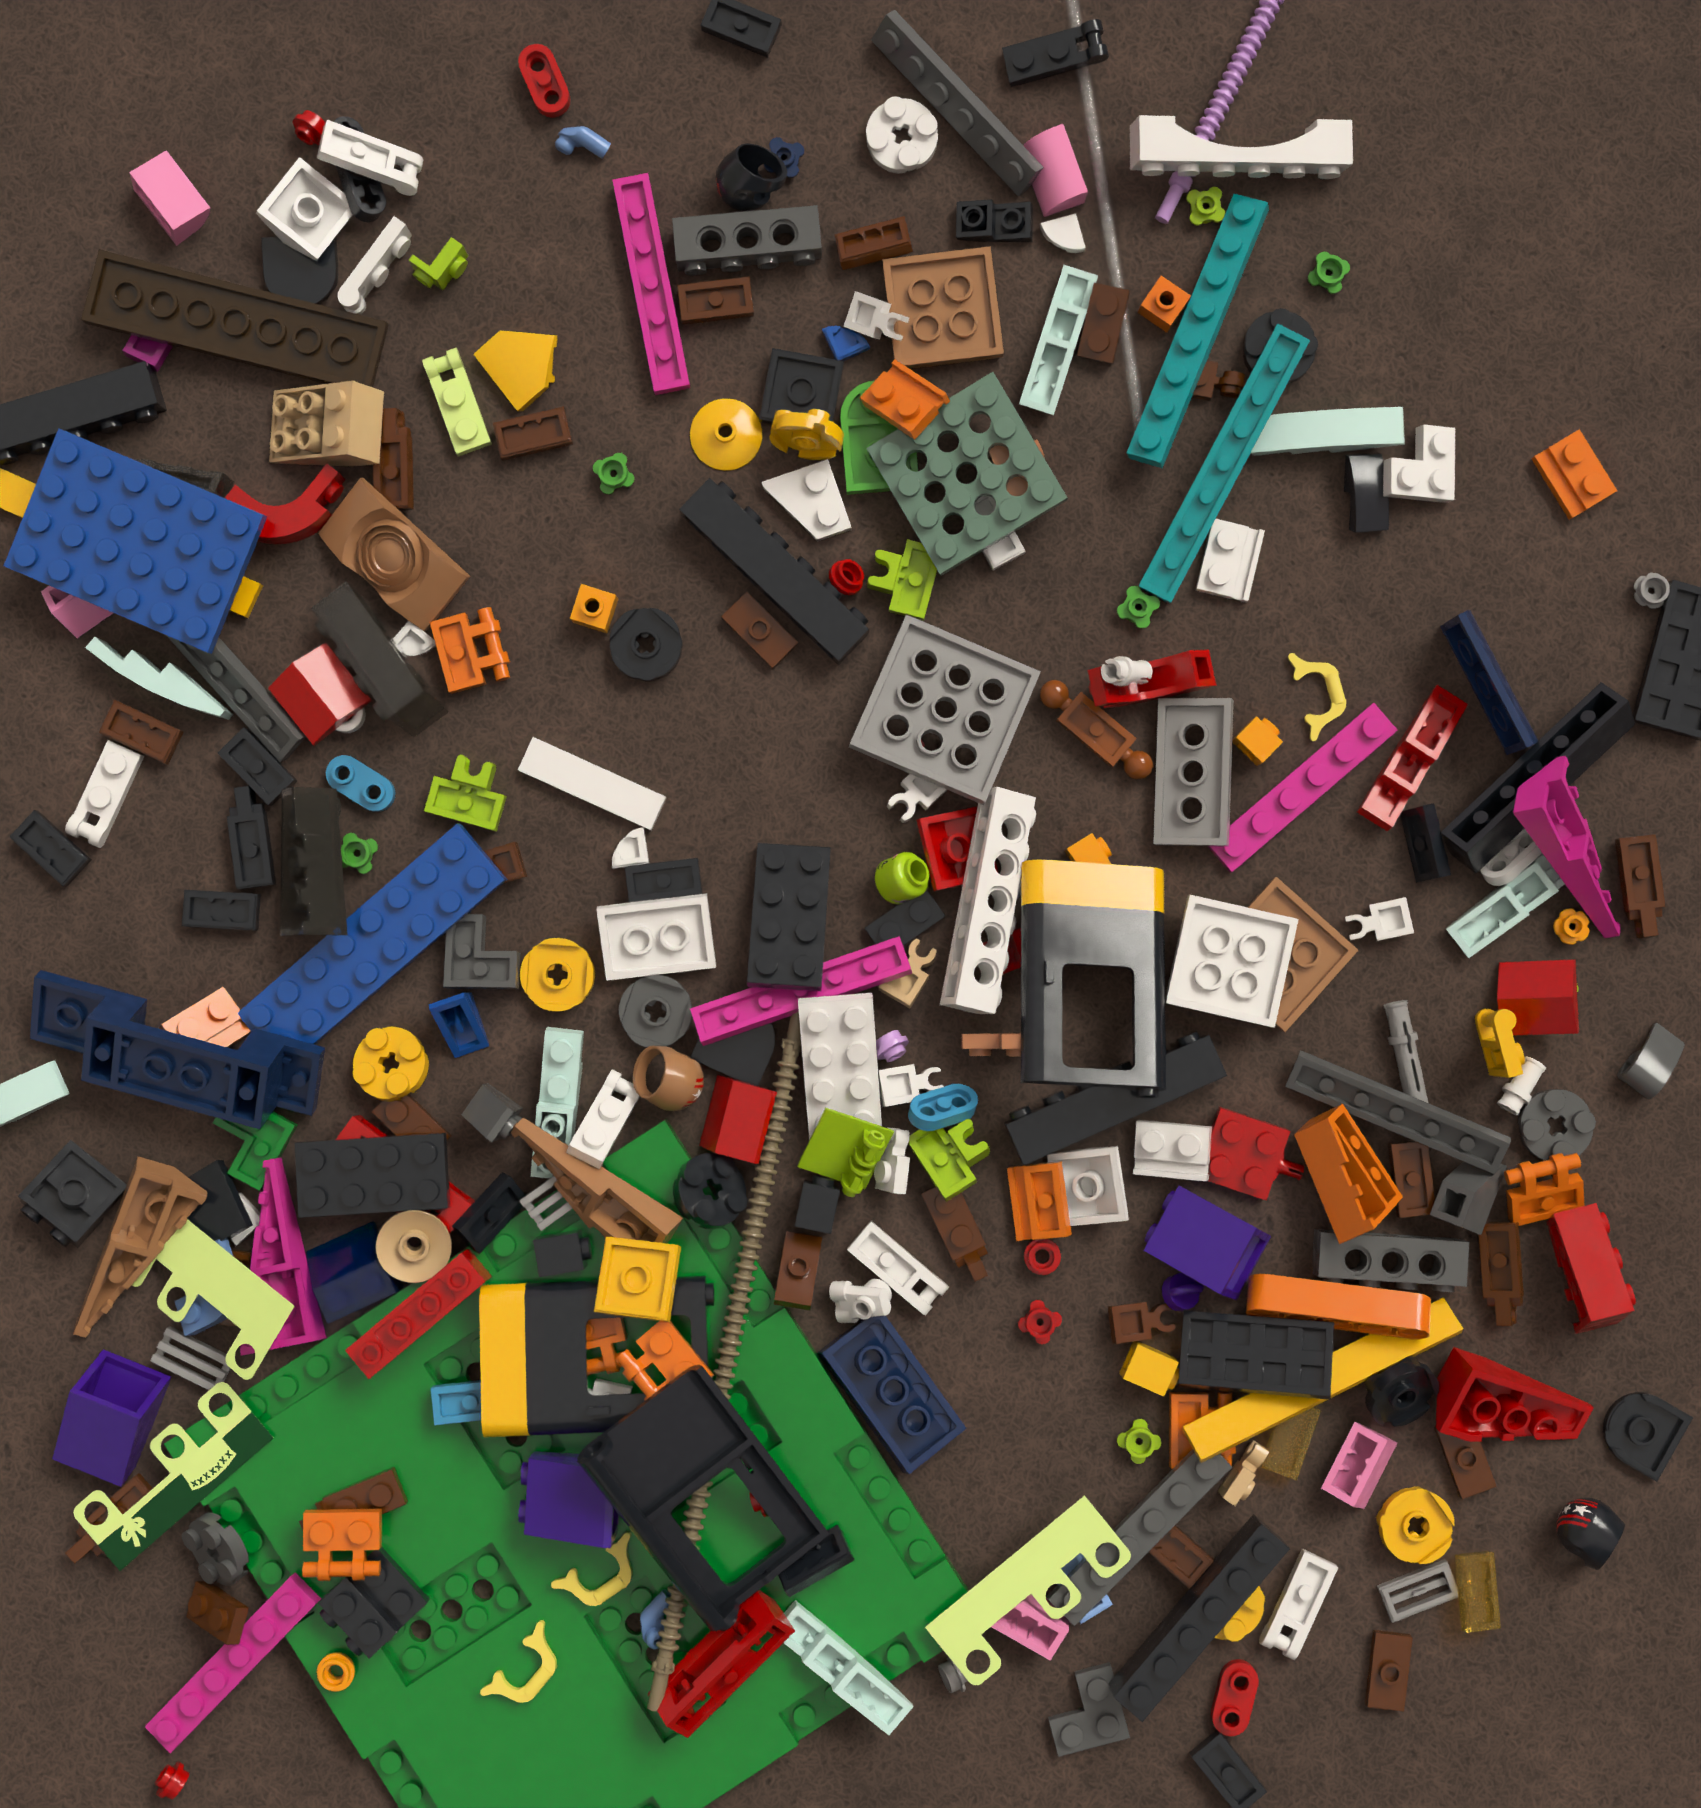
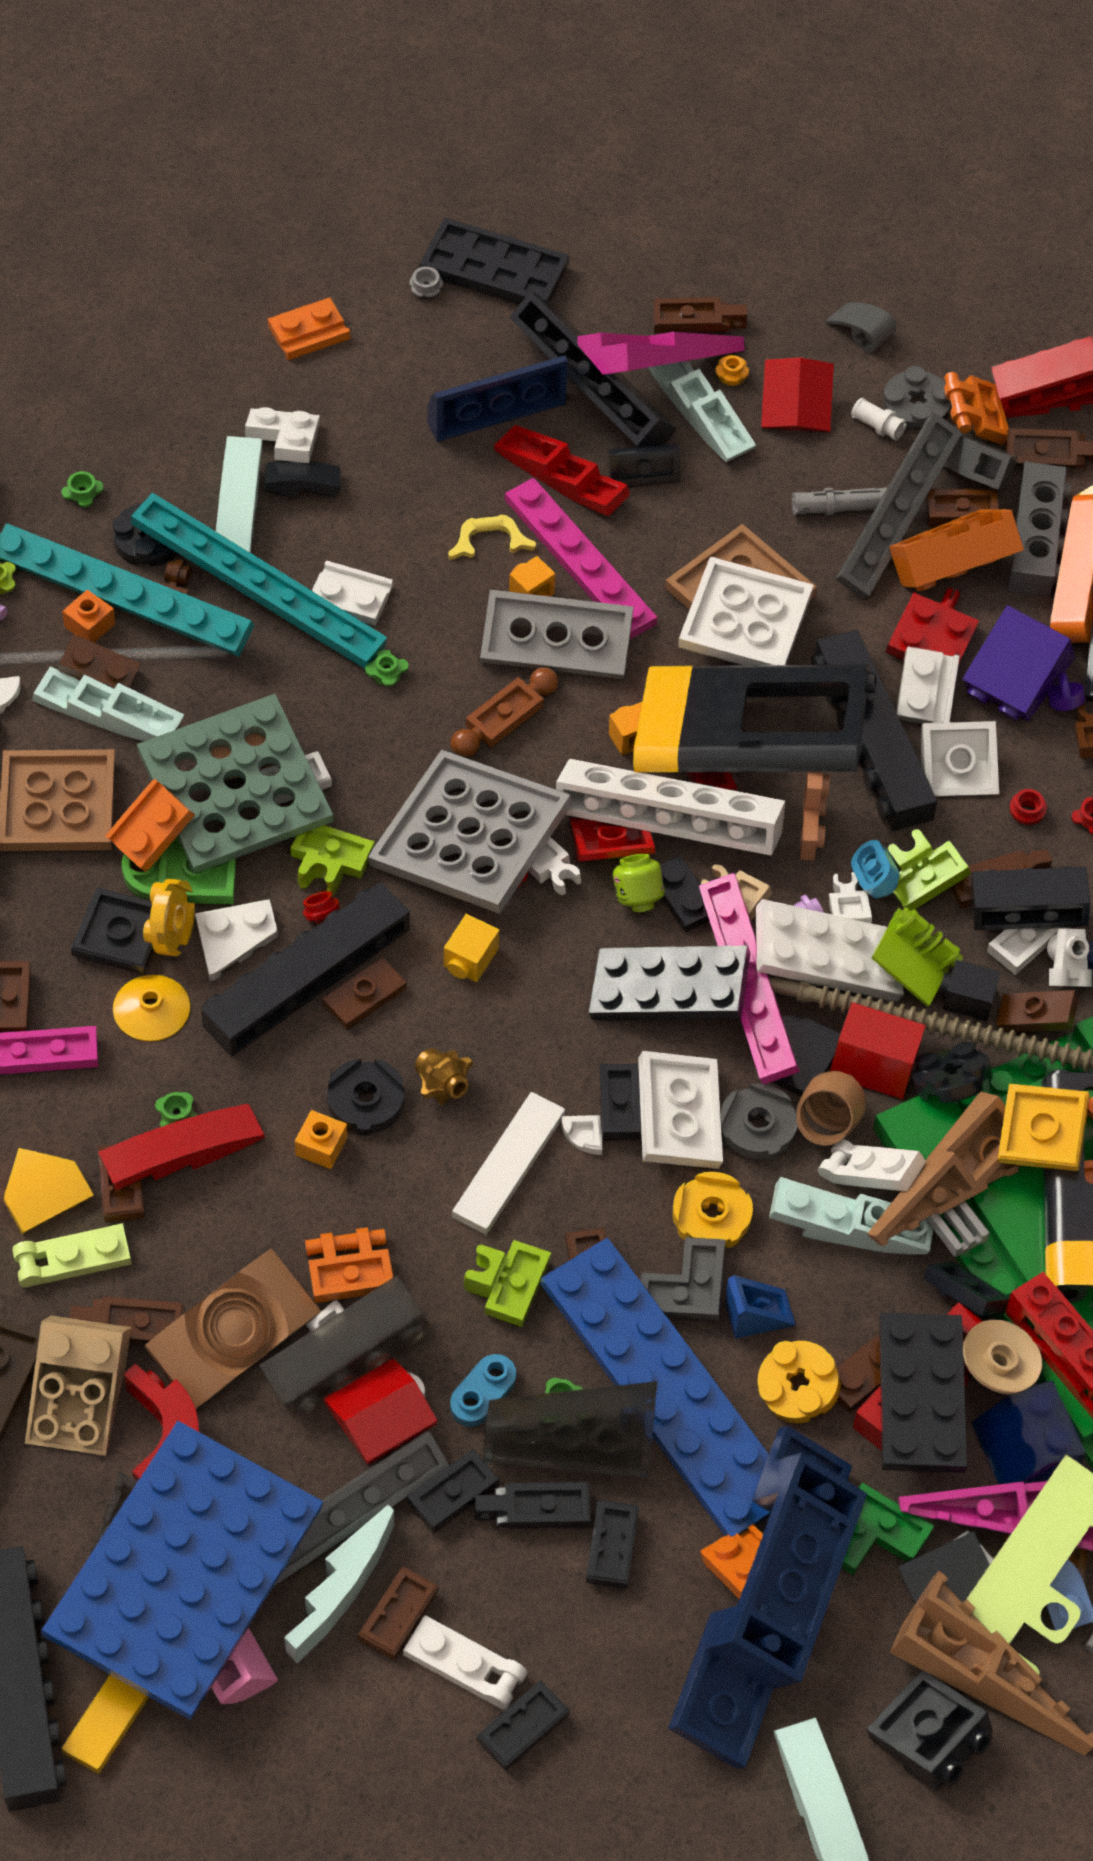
camera: 85 degrees left, 30 degrees down
(492, 1113) = (860, 1274): dark grey slope -> none
(562, 1252) = (1013, 1212): black brick -> none
(571, 482) = (180, 1144): none -> red slope
(670, 712) = (443, 1074): none -> pearl gold rock
(812, 724) = (471, 948): none -> yellow brick
(844, 342) = (74, 891): blue tile -> none
(872, 317) = (54, 859): white plate -> none
(893, 1167) = (940, 914): white plate -> none
(917, 1260) = (1030, 898): none -> black brick
(1039, 1201) = (973, 801): orange plate -> none
(1123, 671) = (455, 669): white pin -> none
(1170, 678) = (461, 654): red arch -> none
(1387, 919) = (715, 502): white plate -> none
(1498, 1044) = (850, 421): yellow plate -> none
(1511, 859) = (665, 400): white plate -> none

